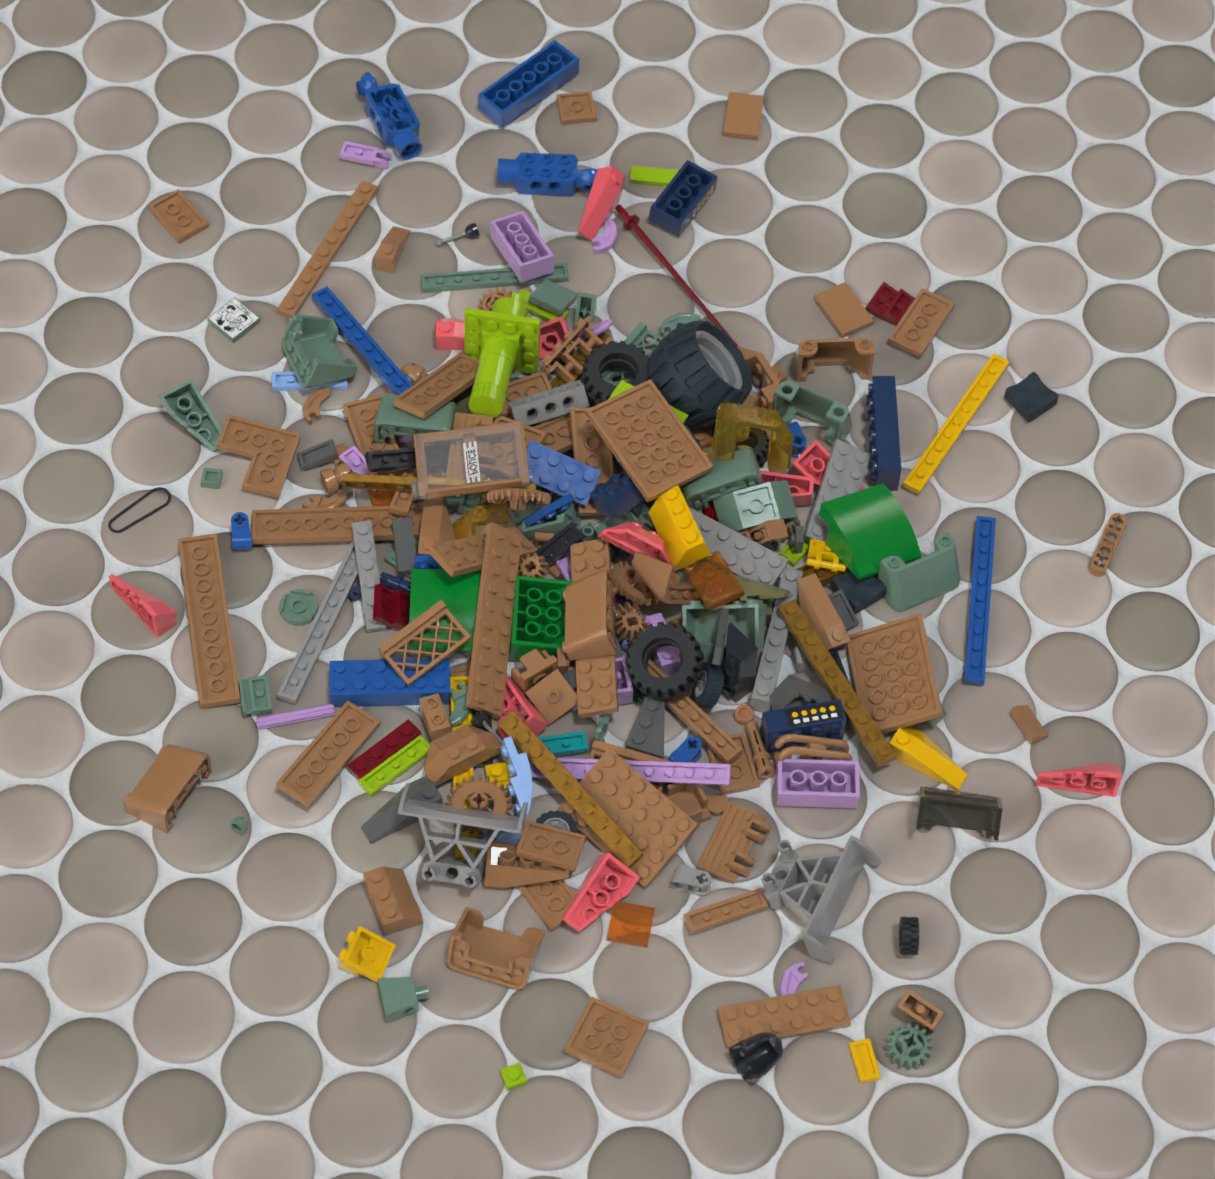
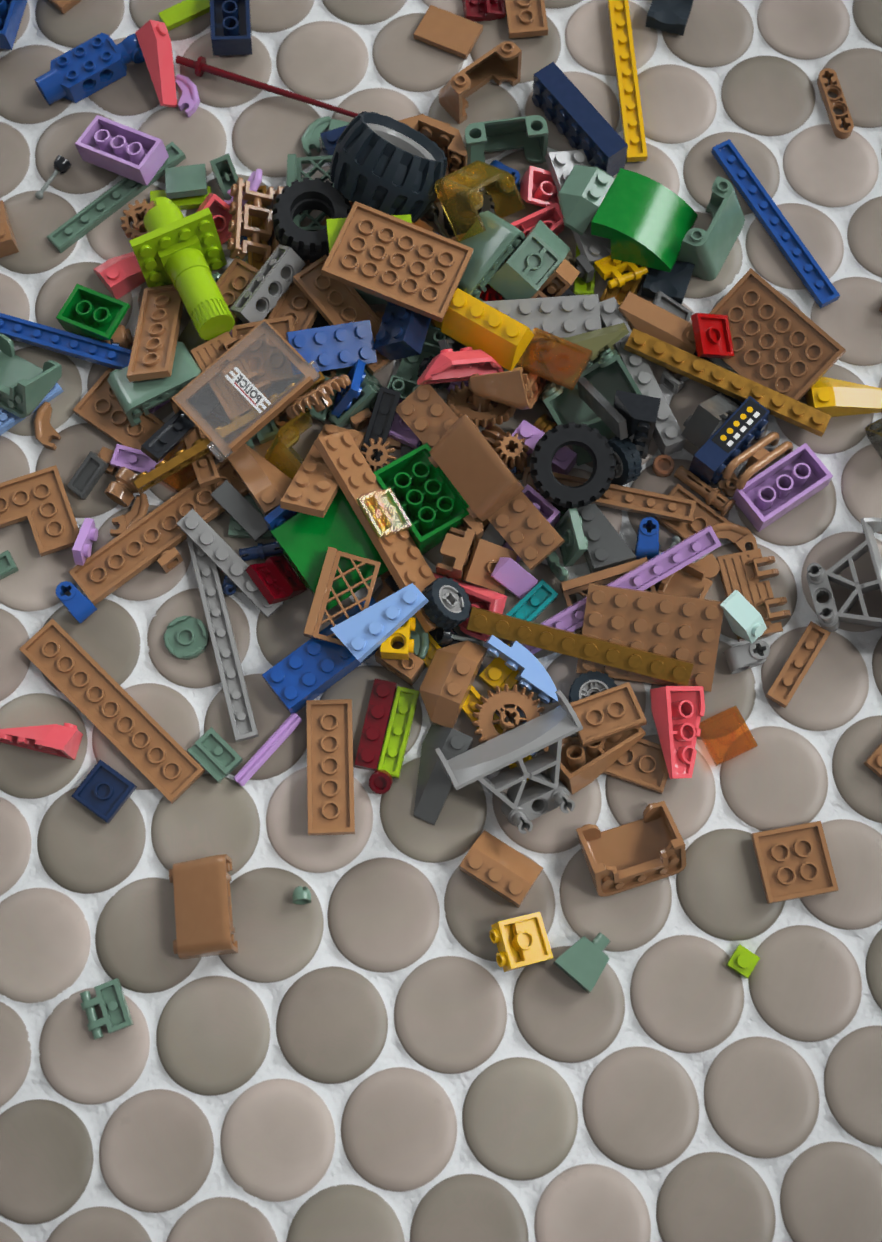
camera: 30 degrees left, 15 degrees up
(56, 809) = (113, 1007): none -> sand green plate
(161, 669) = (104, 791): none -> dark blue plate
(279, 496) = (83, 544): none -> lavender plate
(328, 547) = (169, 560): none -> medium nougat plate
(355, 788) = (380, 782): none -> dark red tile
(407, 345) = (91, 313): none -> green slope
(427, 672) = (378, 622): none -> light blue wing
(439, 690) = (402, 635): none -> yellow brick
(495, 694) = (447, 603): none -> black wheel
(499, 604) = (384, 513): none -> clear yellow slope
(563, 714) = (513, 577): none -> lavender slope
(628, 714) = (571, 531): none -> sand green plate
(706, 845) = (743, 617): none -> light aqua slope
(755, 792) = (736, 534): none -> medium nougat piece
(837, 481) = (583, 195): none -> sand green wedge
(852, 643) = (712, 335): none -> red plate

